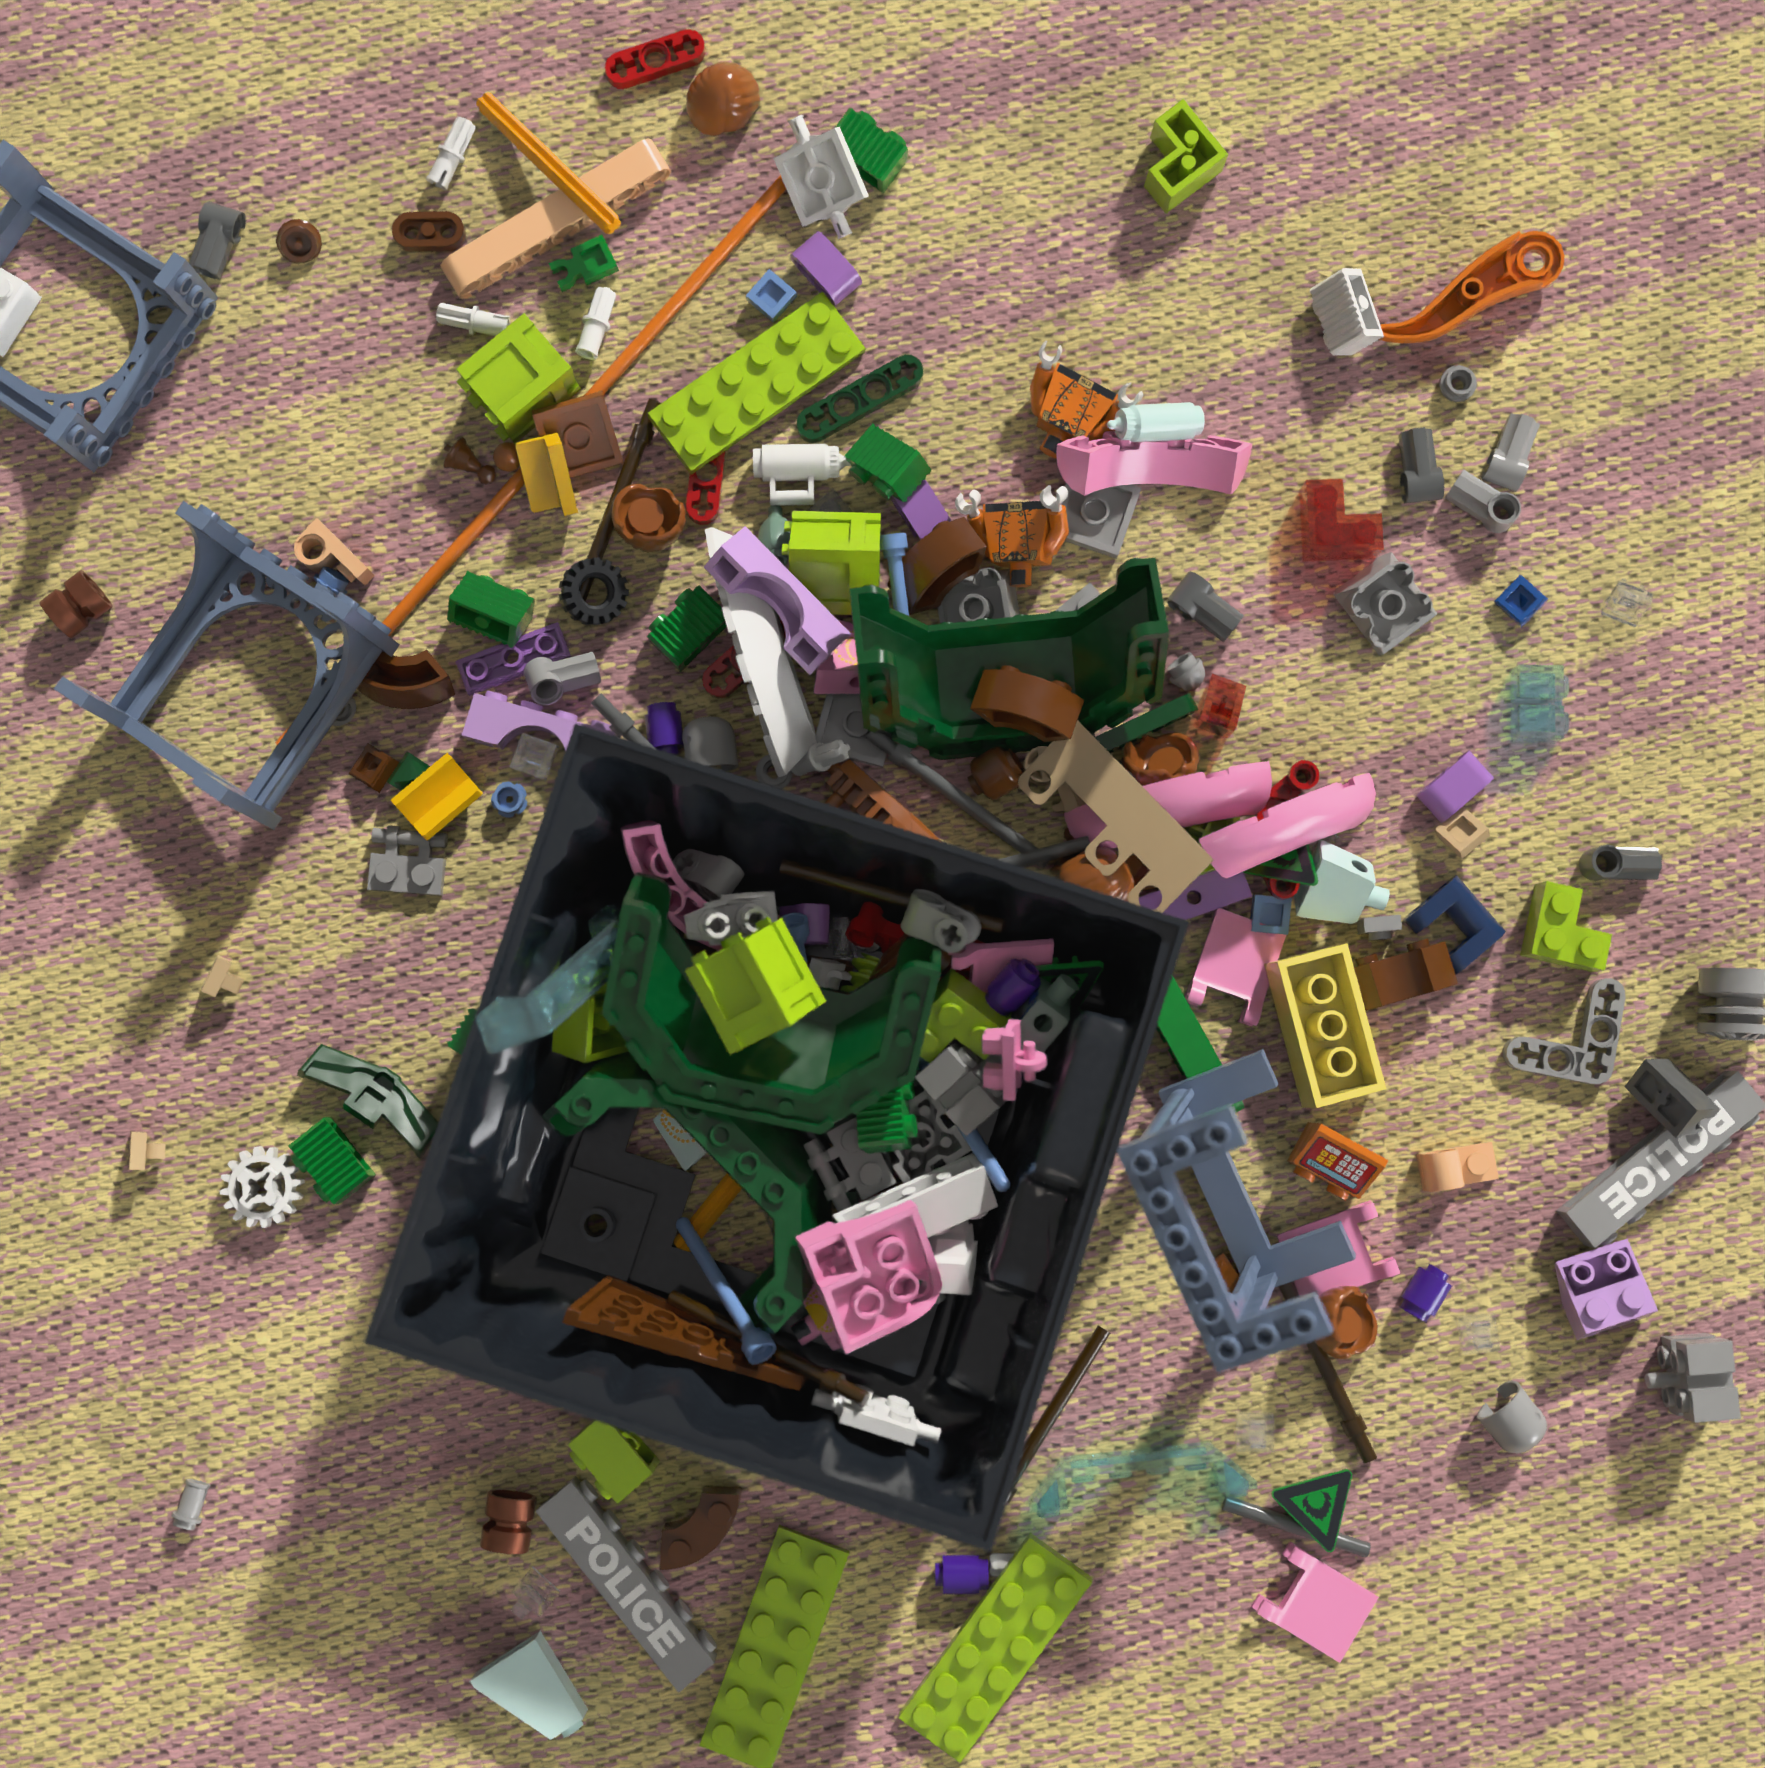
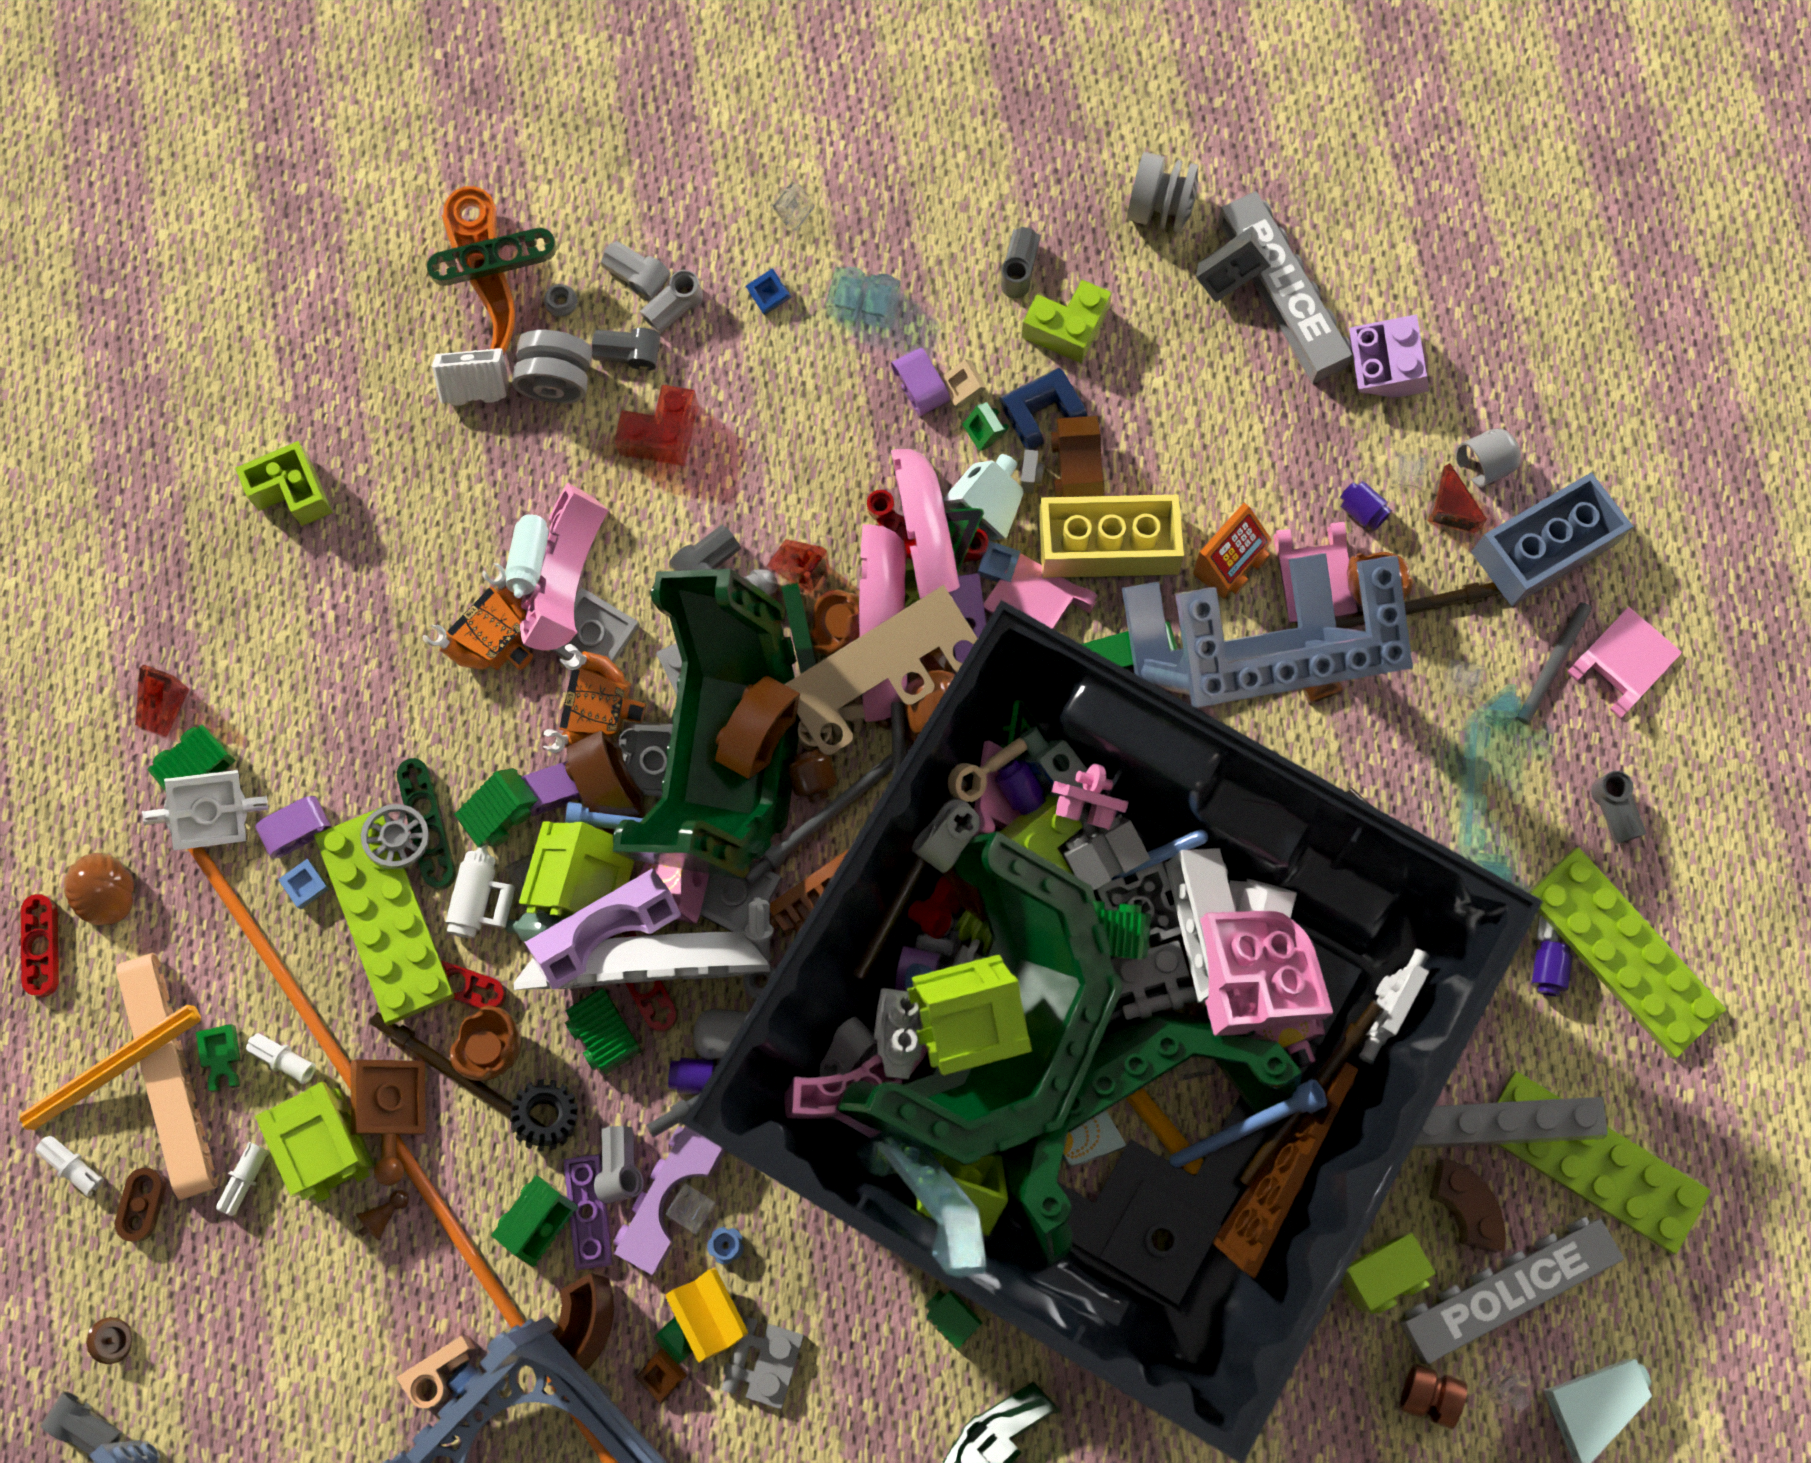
camera: 75 degrees left, 10 degrees down
(546, 474) = (417, 1134): yellow panel -> none
(790, 1565) = (1514, 1123): none -> light grey brick
(836, 371) = (395, 836): none -> light grey wheel
(925, 98) = (158, 700): none -> clear red slope
(1003, 943) = (979, 780): none -> tan piece
(1146, 1622) = (1618, 811): none -> dark grey piece
(1317, 1504) = (1538, 638): black piece -> none
(1375, 393) = (552, 366): none -> light grey wheel
(1385, 602) = (740, 403): light grey slope -> none
(1419, 866) = (984, 426): none -> green tile
(1431, 1501) = (1551, 539): none -> sand blue brick
(1449, 1388) = (1454, 504): none -> clear red slope
(1457, 1166) = (1258, 456): light nougat plate -> none
(1477, 299) = (490, 250): none -> dark green beam
(1578, 1056) = (1180, 333): light grey beam -> none
(1697, 1377) = (1479, 297): light grey brick -> none

